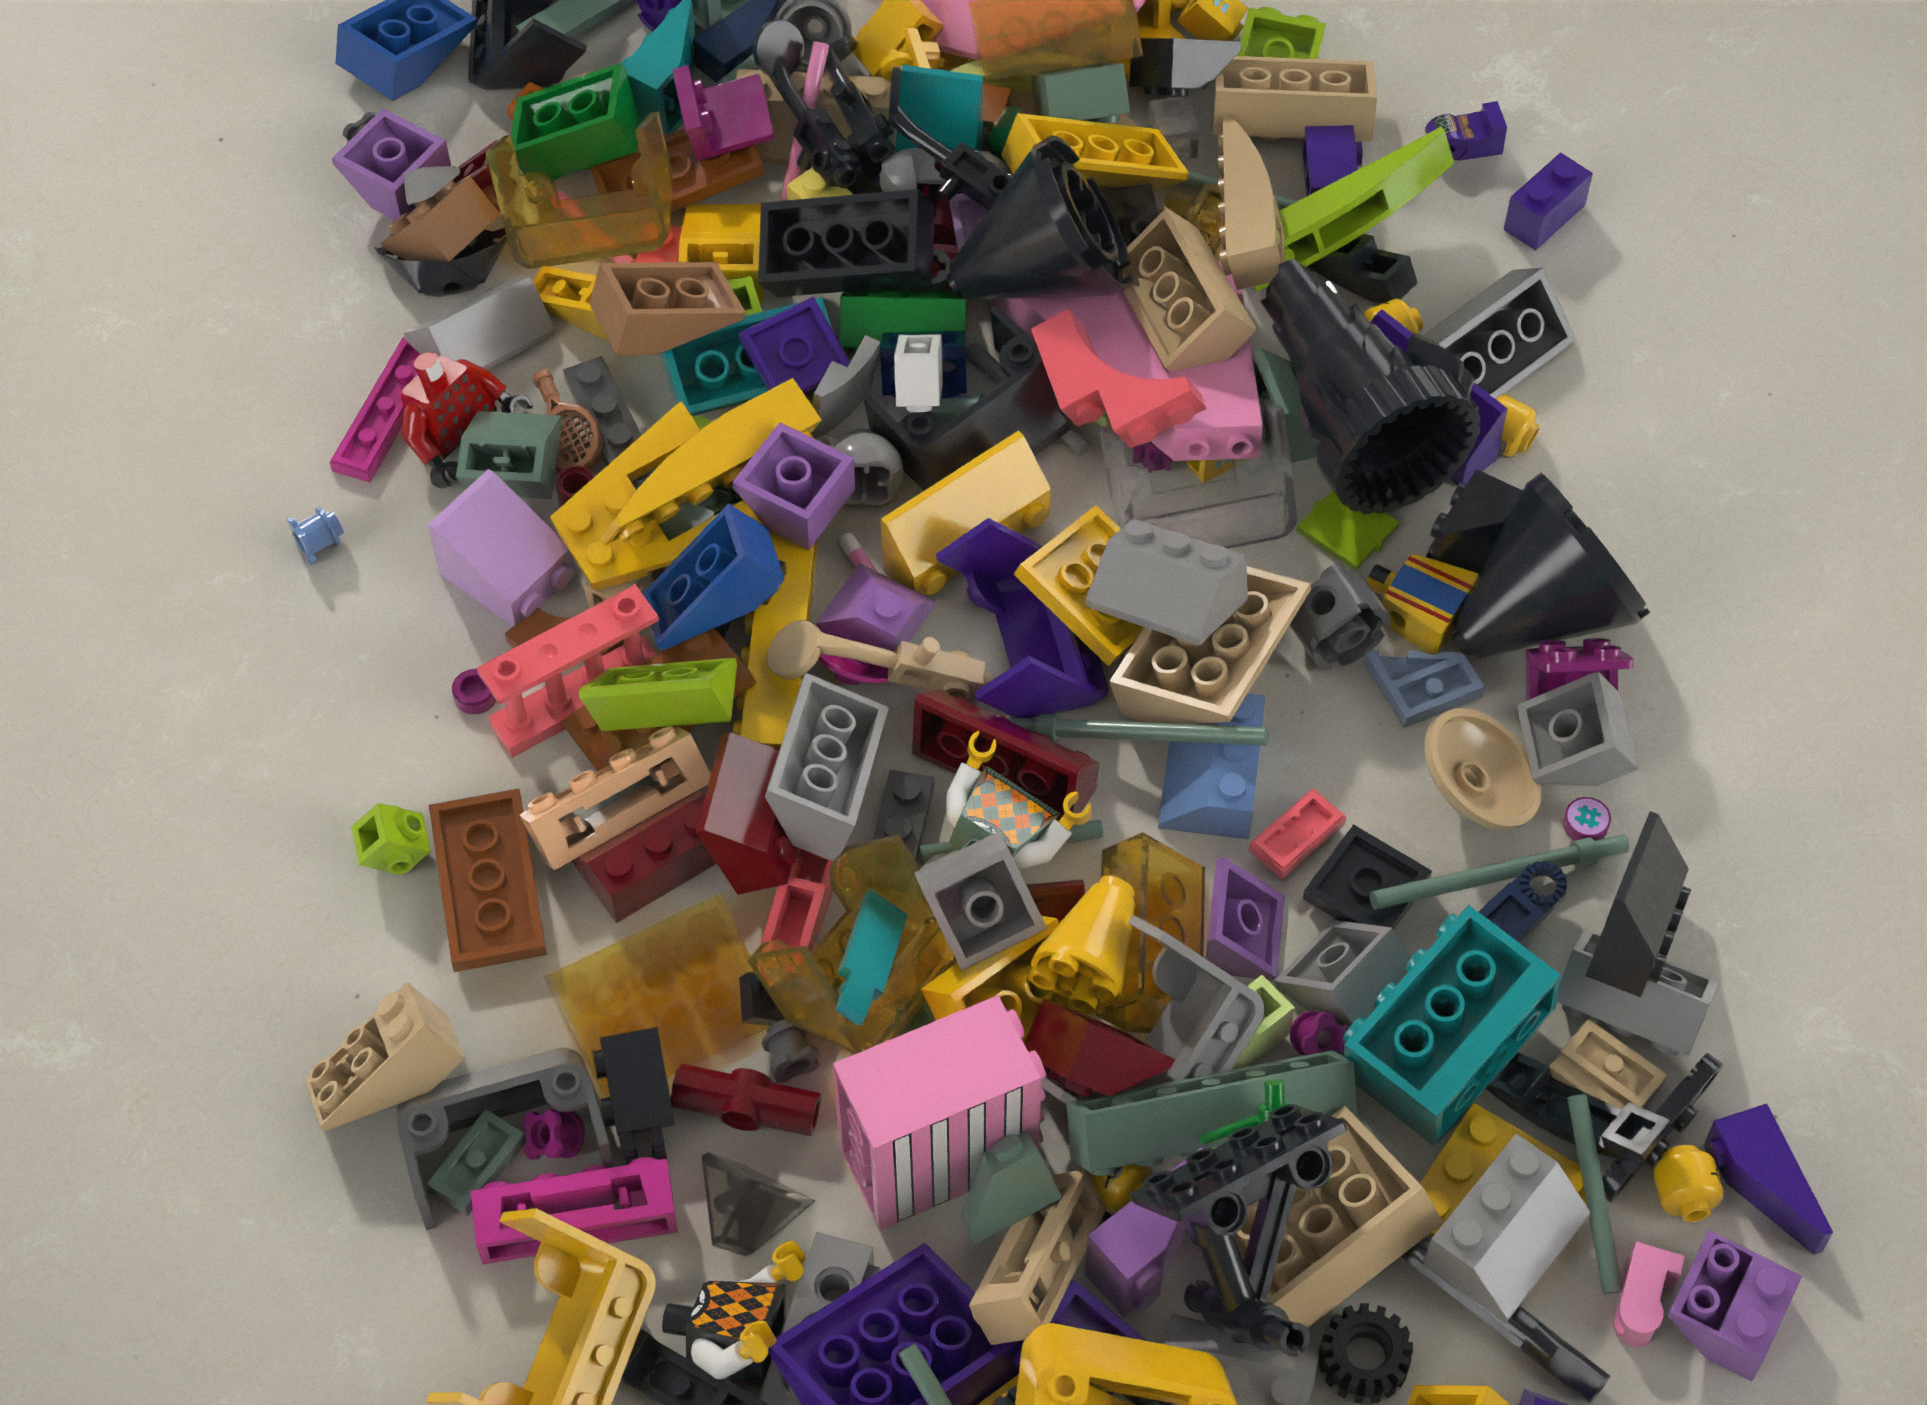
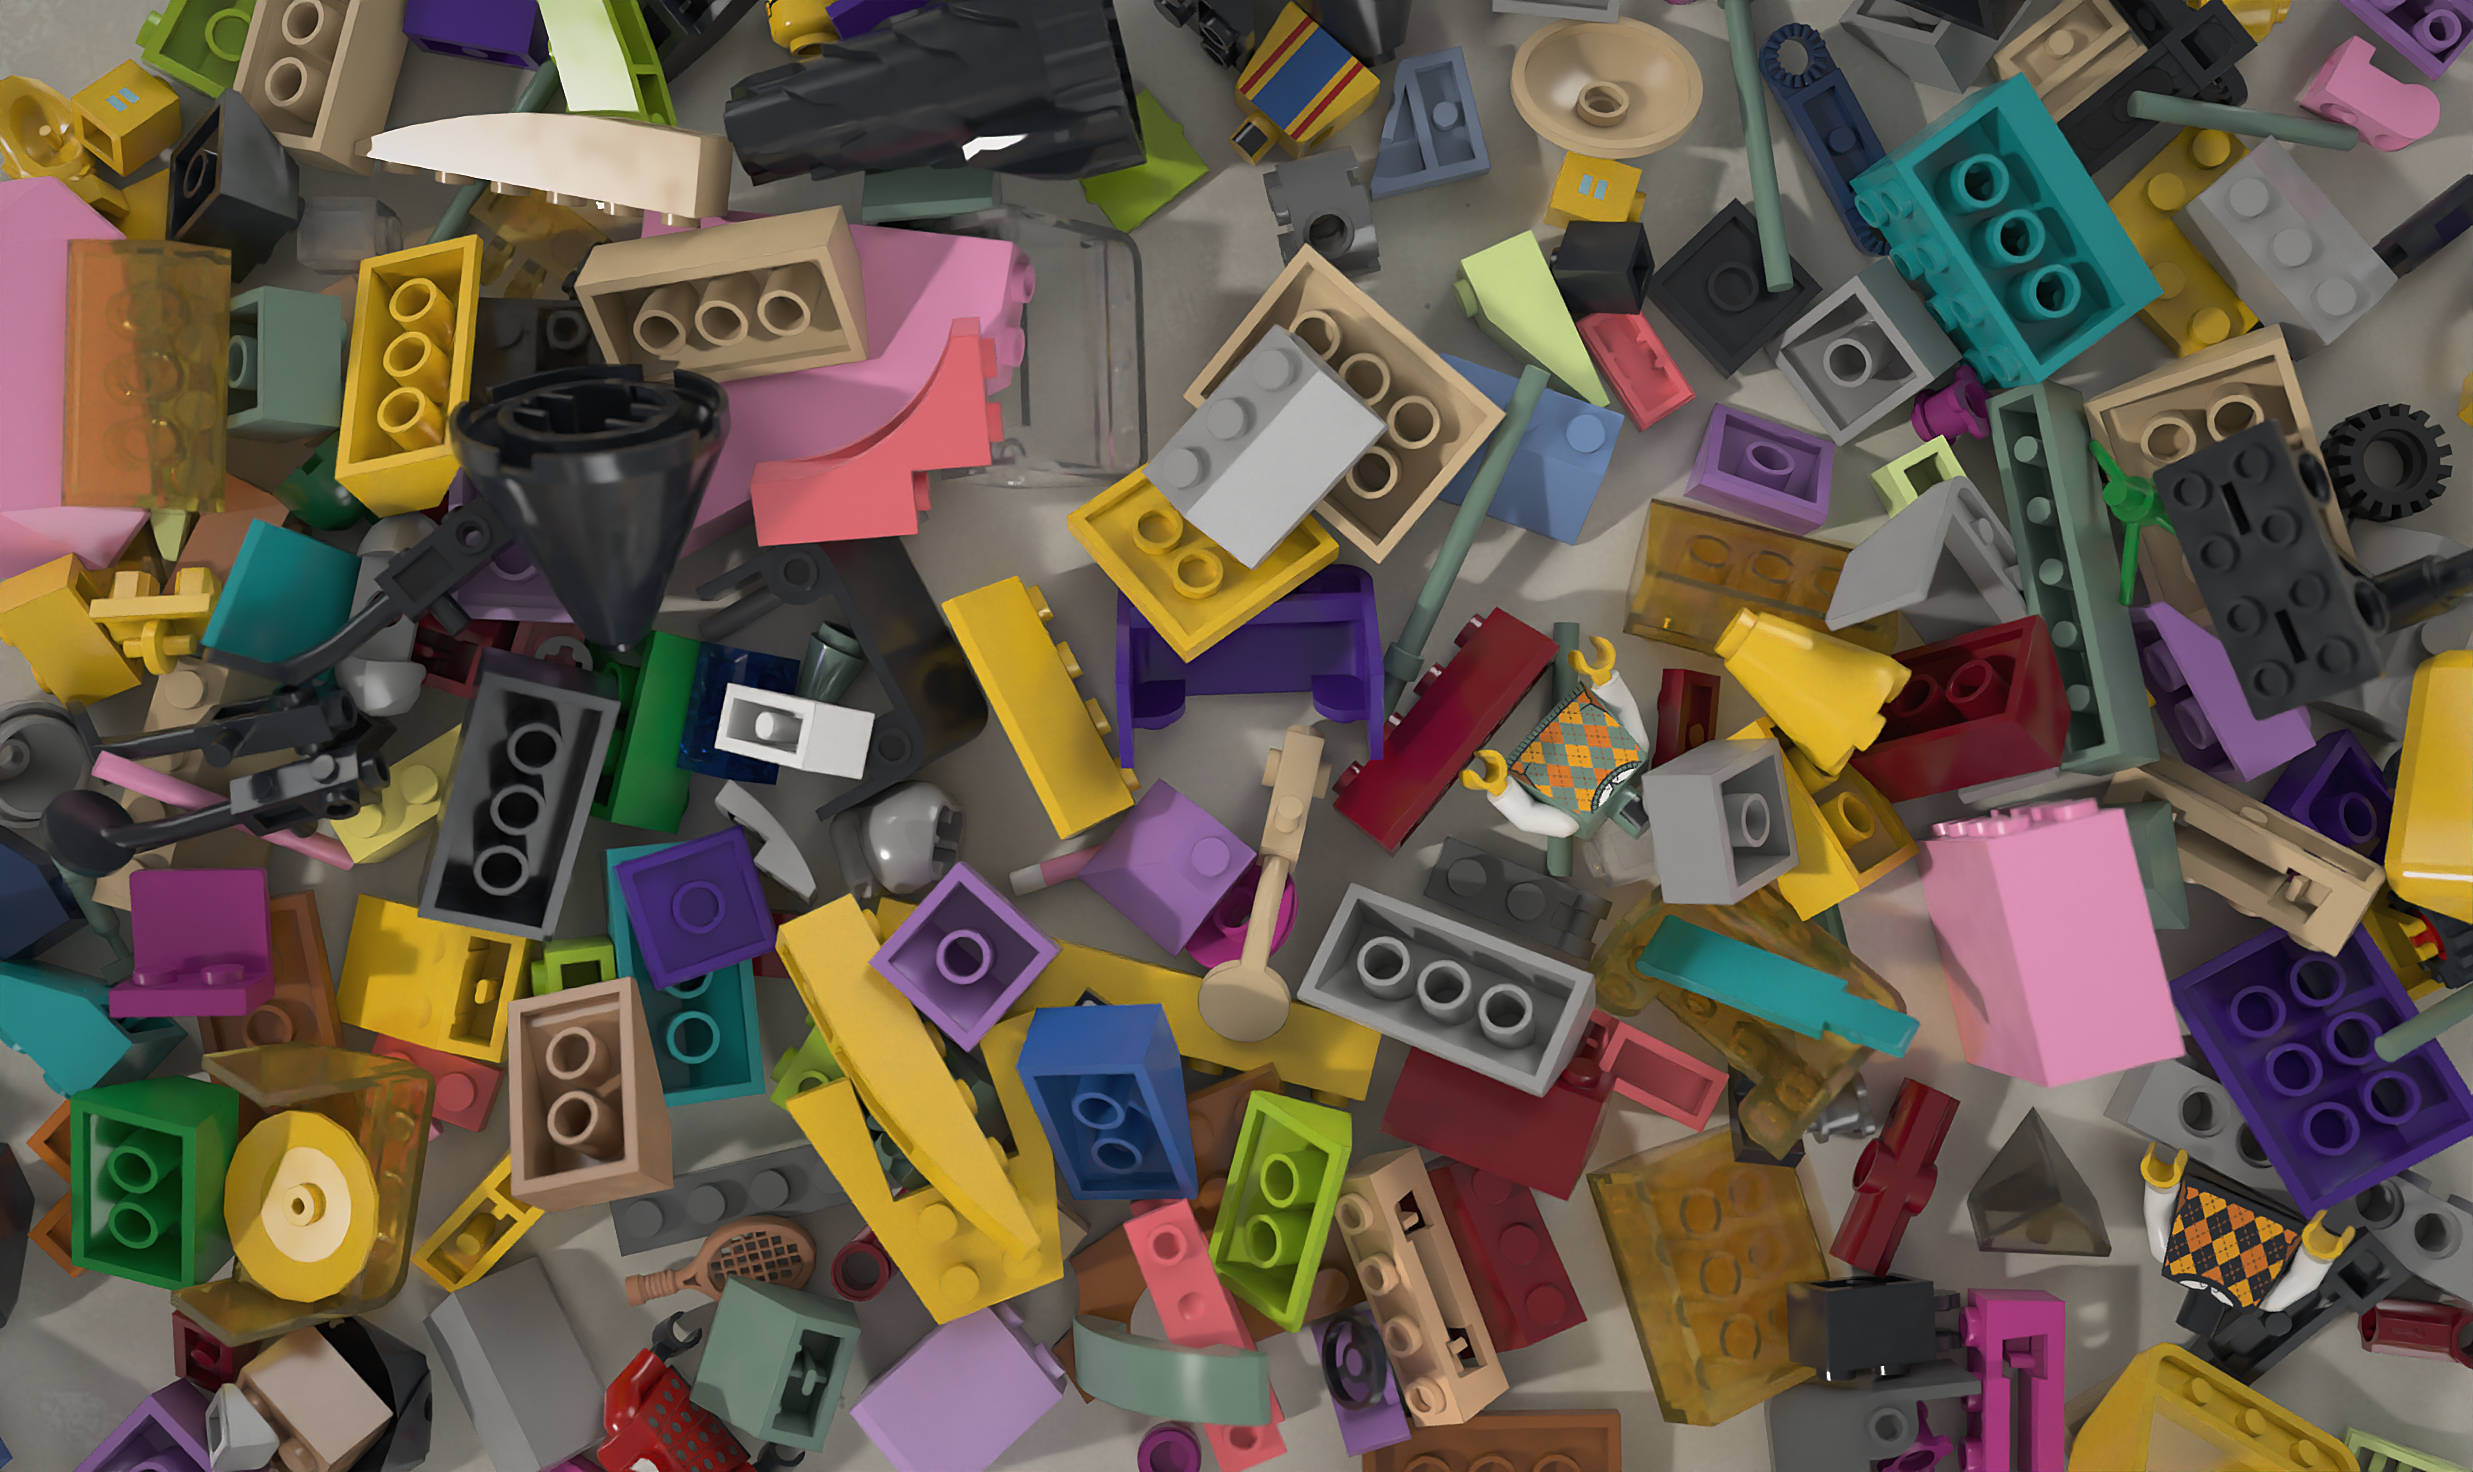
camera: 80 degrees left, 30 degrees up
(527, 781) = (1360, 1383): none -> piece
(539, 632) = (1170, 1379): none -> sand green slope
(573, 189) = (301, 1205): none -> yellow piece
(1316, 754) = (1526, 316): none -> yellowish green slope
(1355, 791) = (1603, 267): none -> black brick
(1405, 786) = (1594, 192): none -> yellow brick

